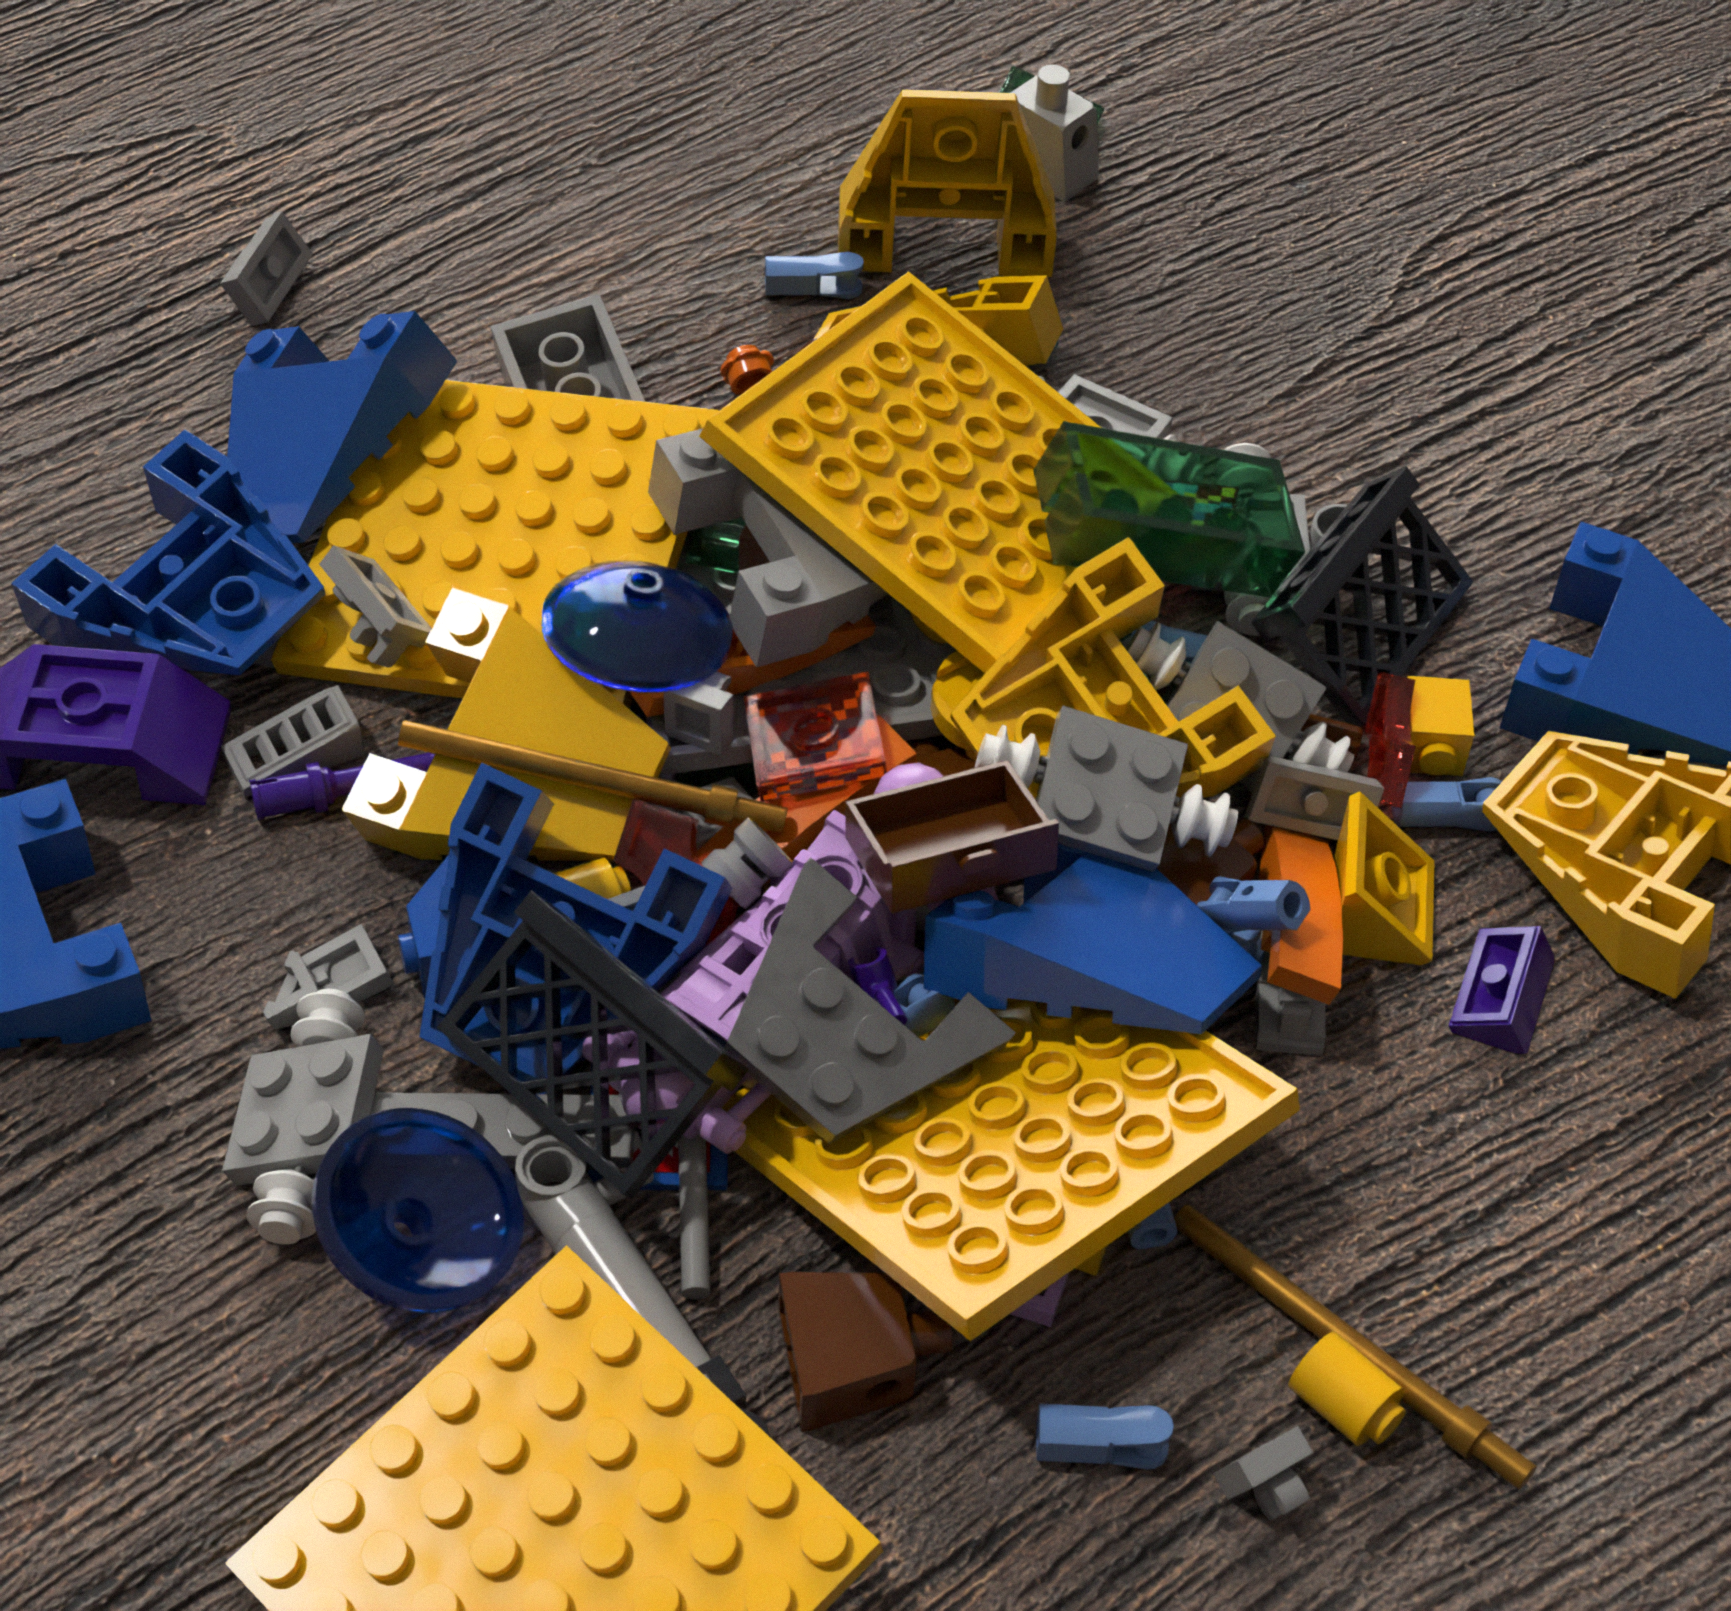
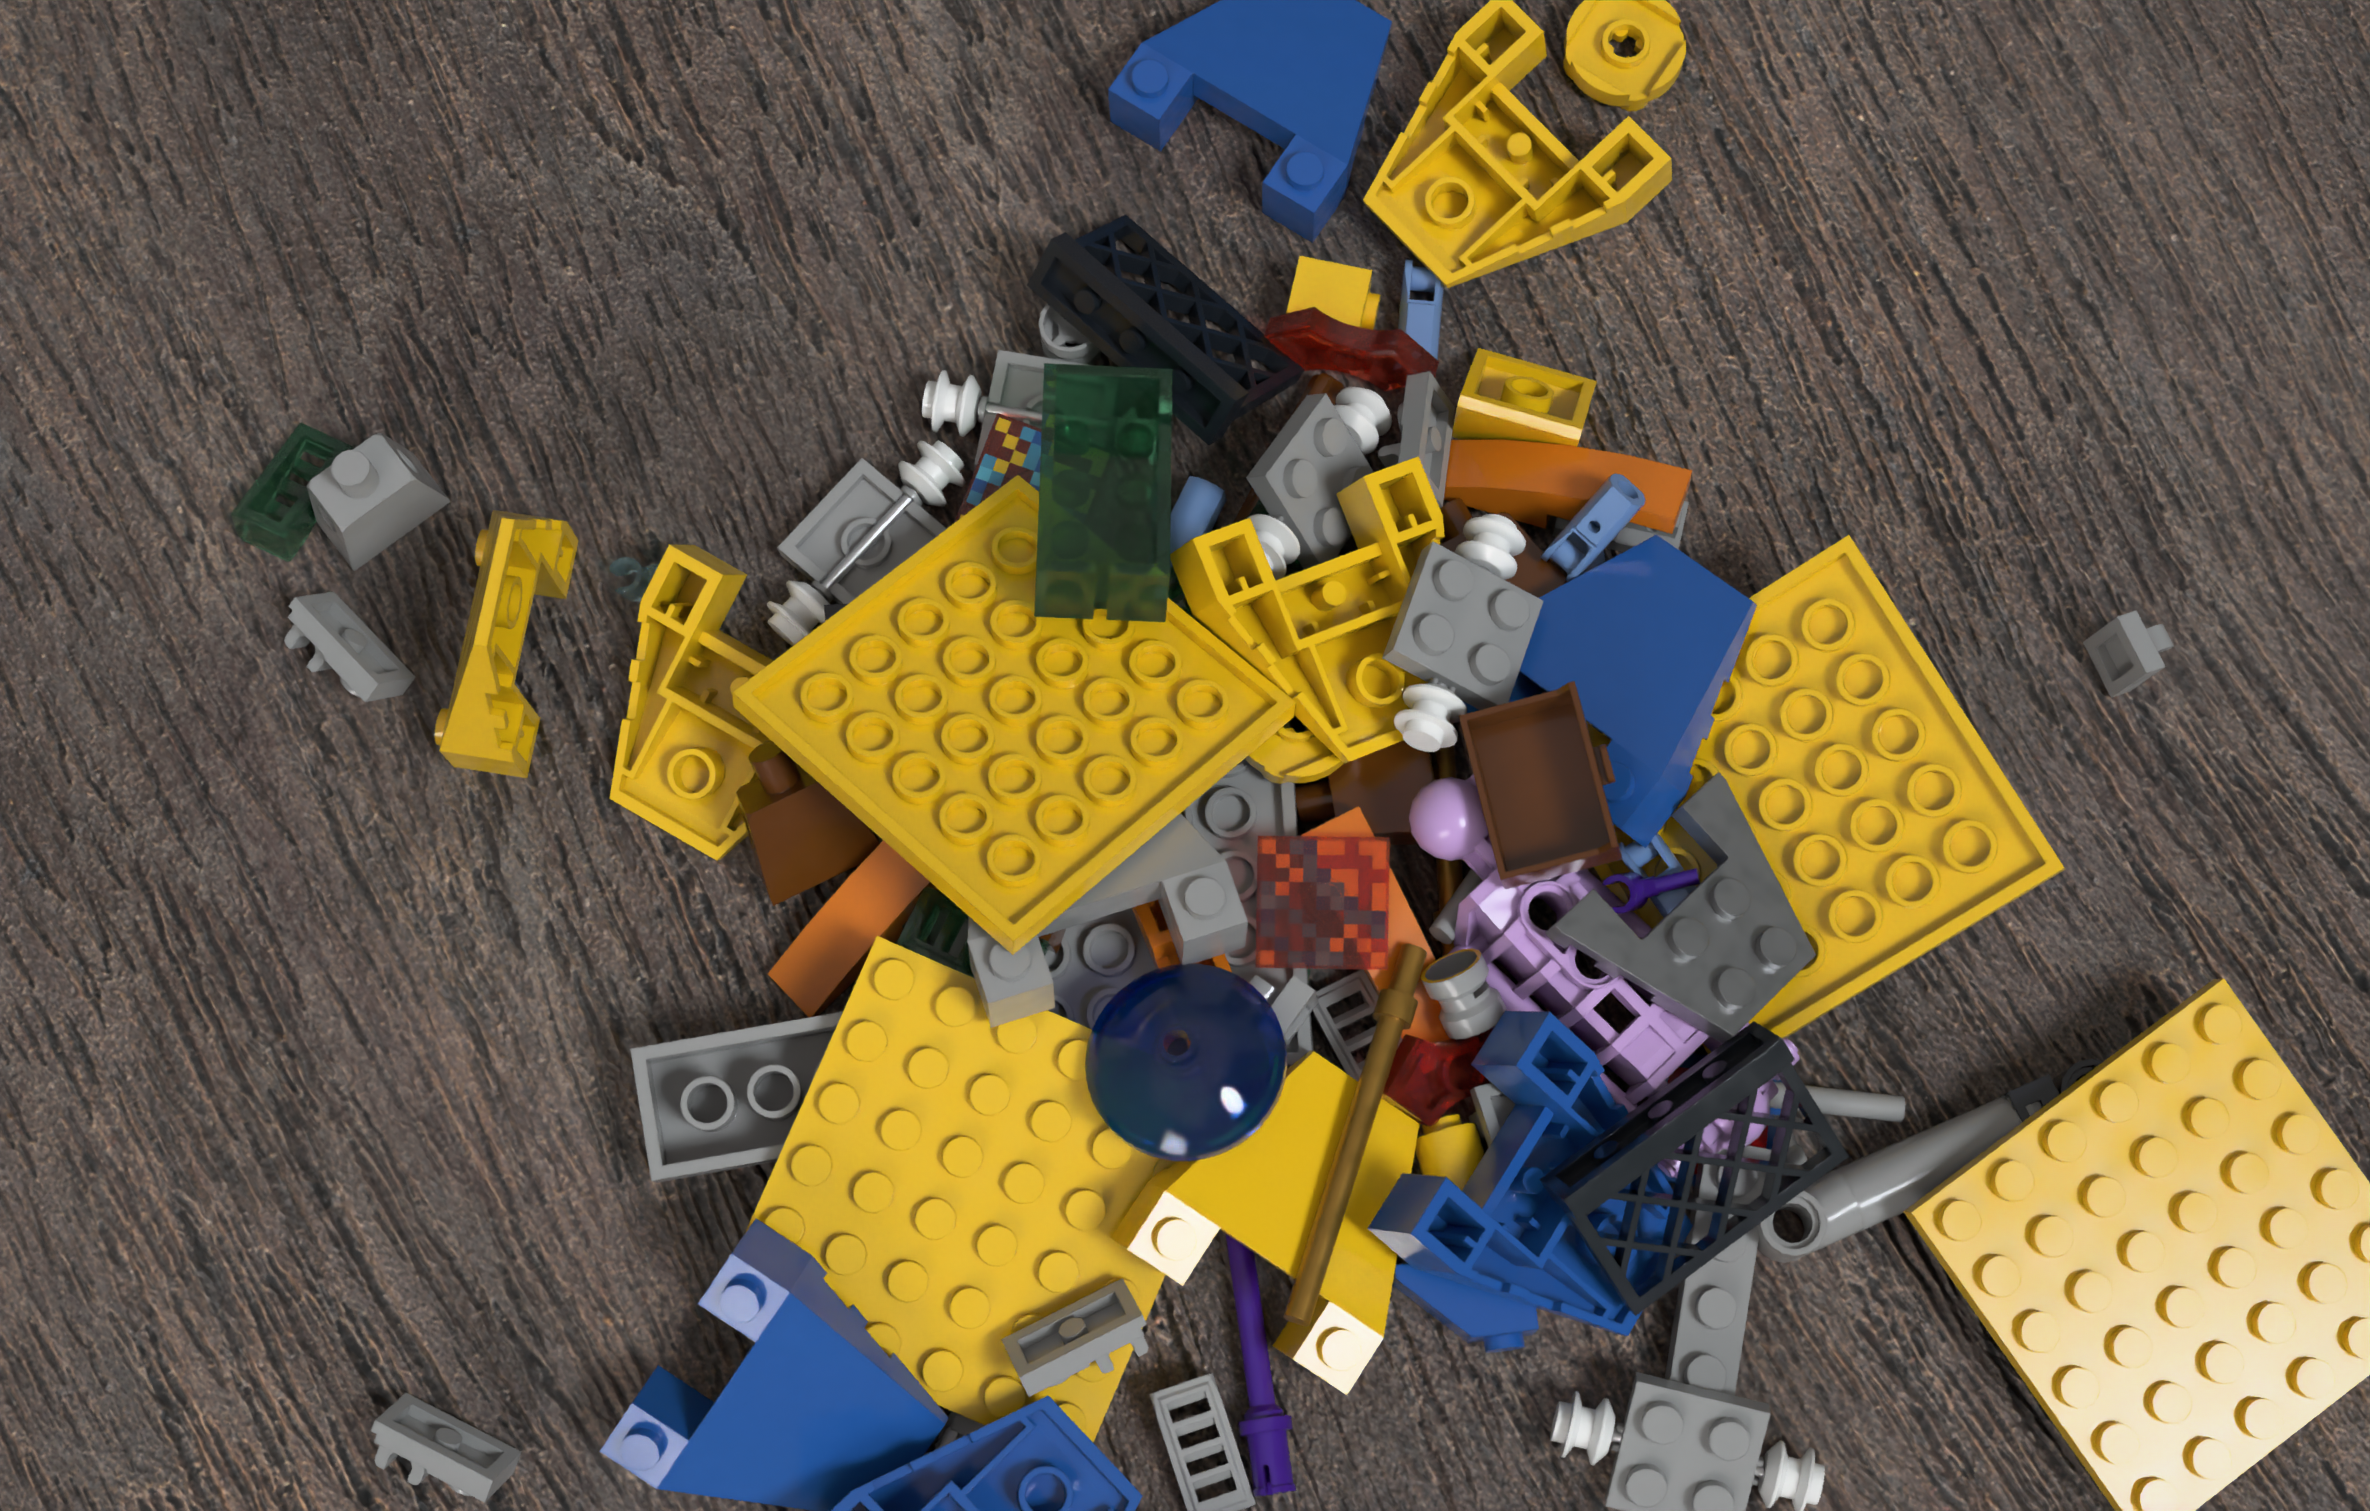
camera: 75 degrees left, 25 degrees up
(343, 964) = (1510, 1424): light grey slope -> none
(437, 1182) = (1848, 1327): clear blue dish -> none
(746, 367) = (705, 901): orange plate -> none
(814, 275) = (551, 807): medium blue bar -> none
(852, 1343) = (1983, 985): reddish brown torso -> none
(1102, 1435) = (2078, 781): medium blue bar -> none
(1348, 1390) = (2058, 568): yellow brick -> none
(1462, 1428) = (2089, 484): pearl gold bar -> none
(1504, 987) = (1634, 327): dark purple slope -> none

